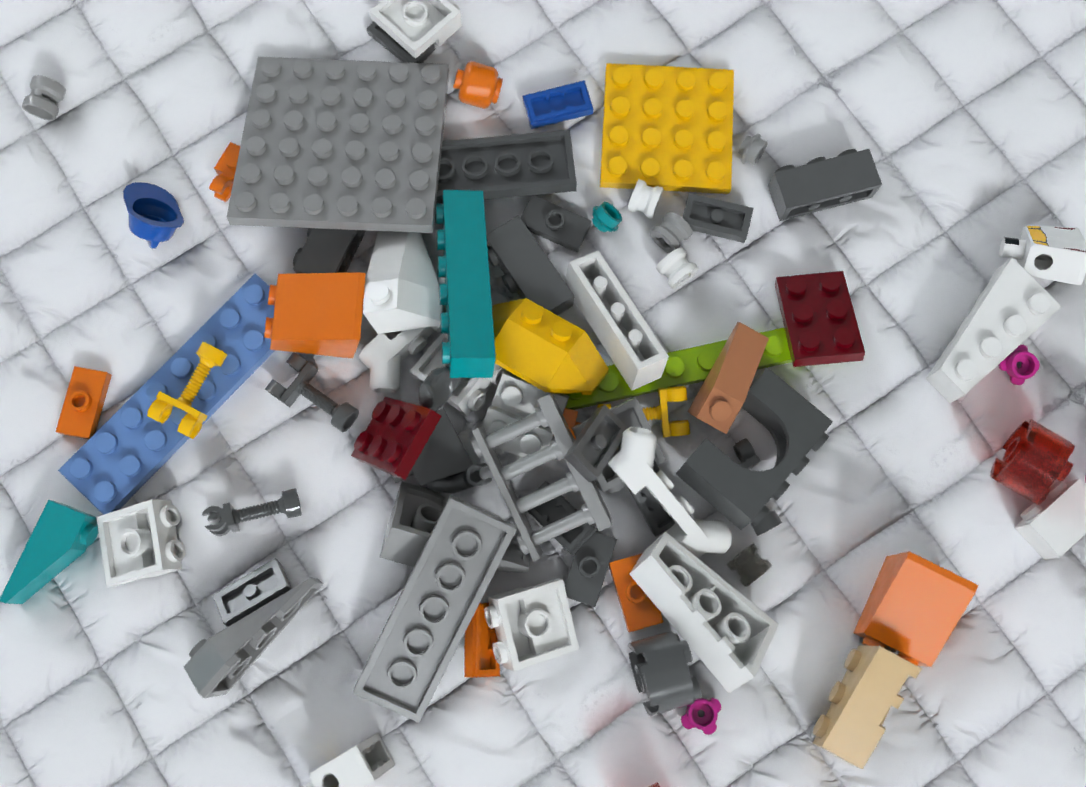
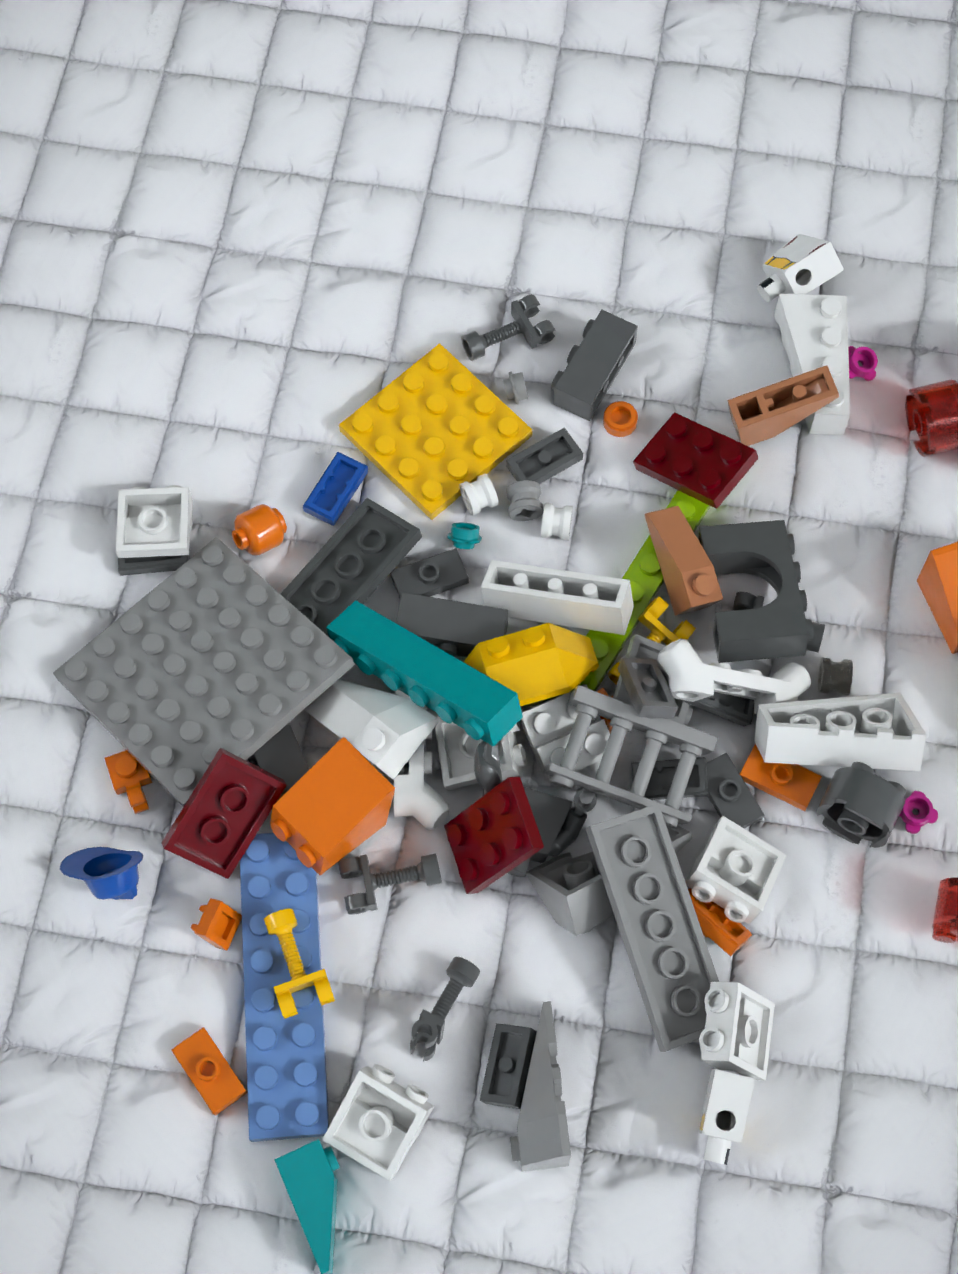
camera: 45 degrees left, 10 degrees down
(181, 316) = (217, 924): none -> orange tile
(249, 248) = (223, 813): none -> dark red plate
(410, 730) = (737, 1029): none -> white plate
(801, 239) = (620, 419): none -> orange tile
(818, 99) = (520, 310): none -> dark grey bar
(922, 339) = (781, 405): none -> nougat slope

